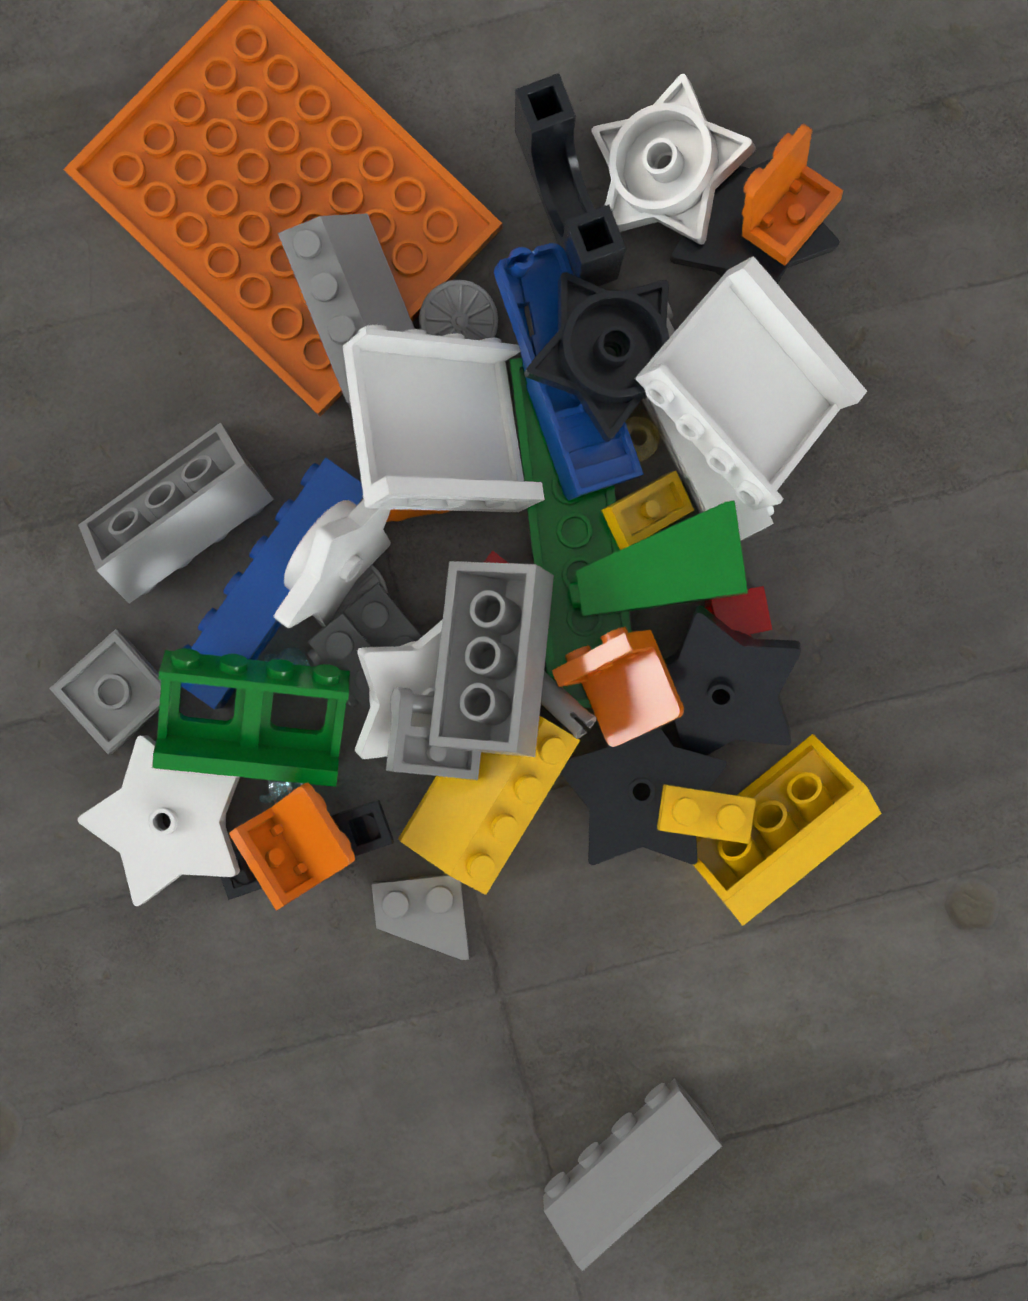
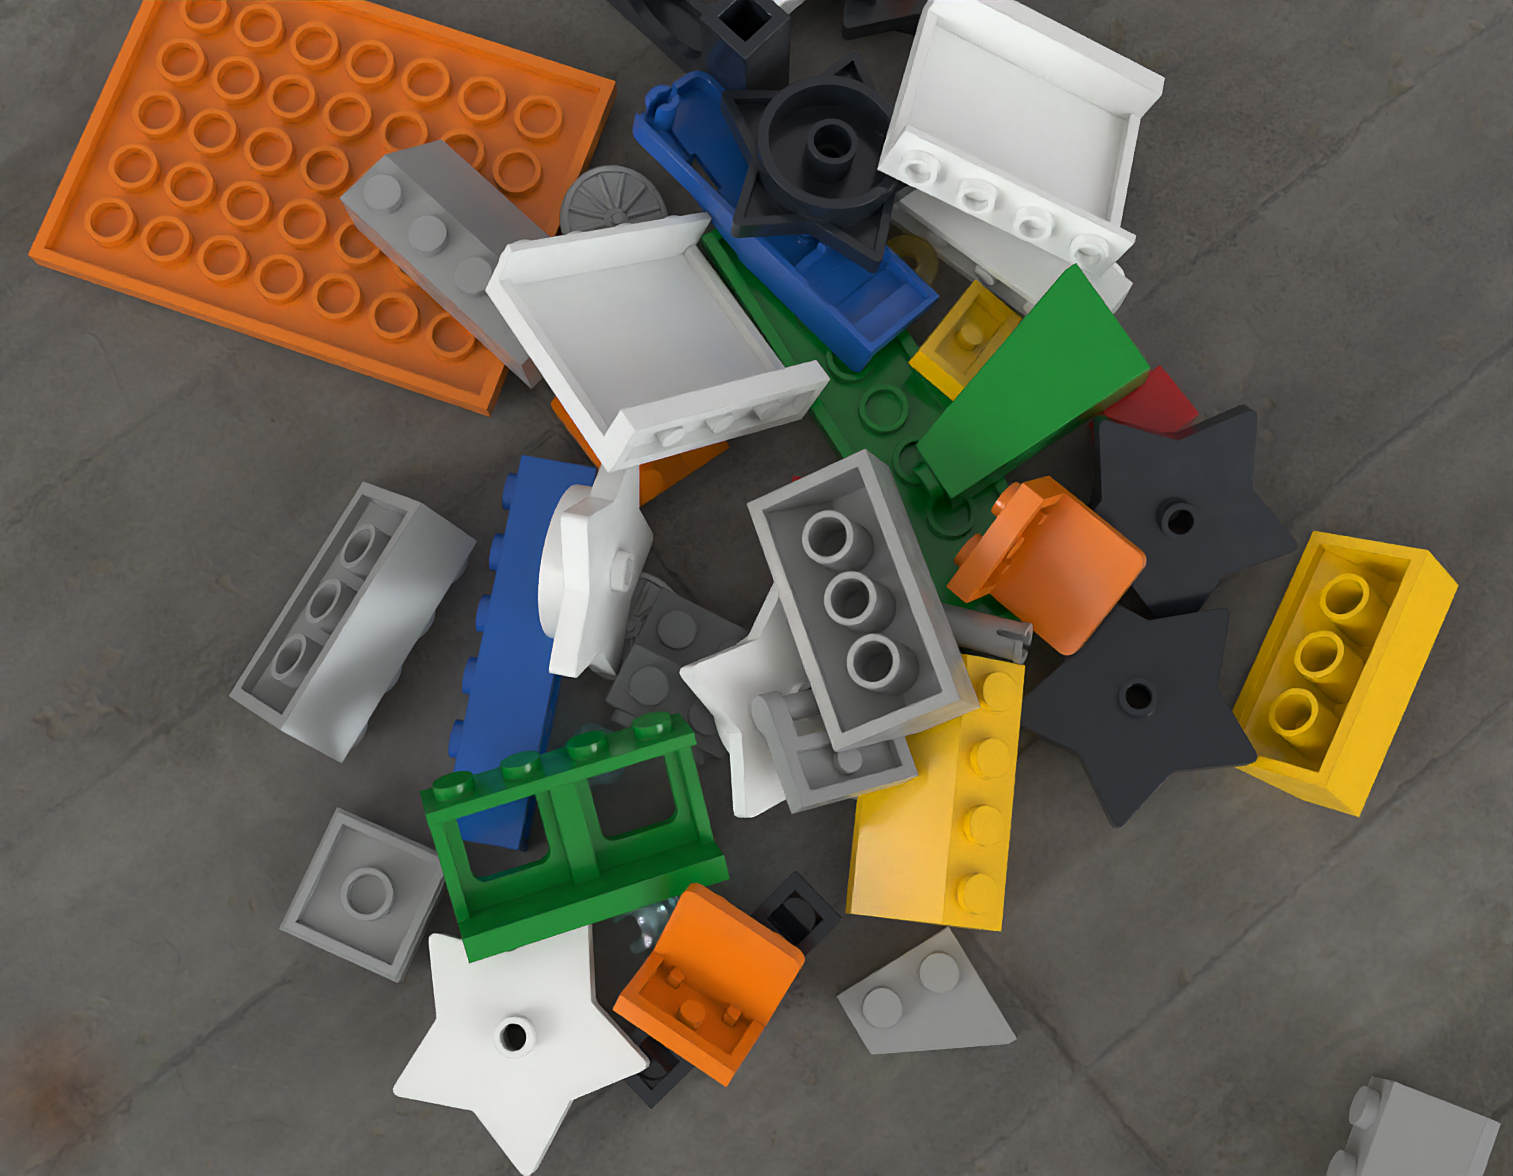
camera: 20 degrees left, 10 degrees down
(706, 814) = (1237, 685): yellow plate -> none

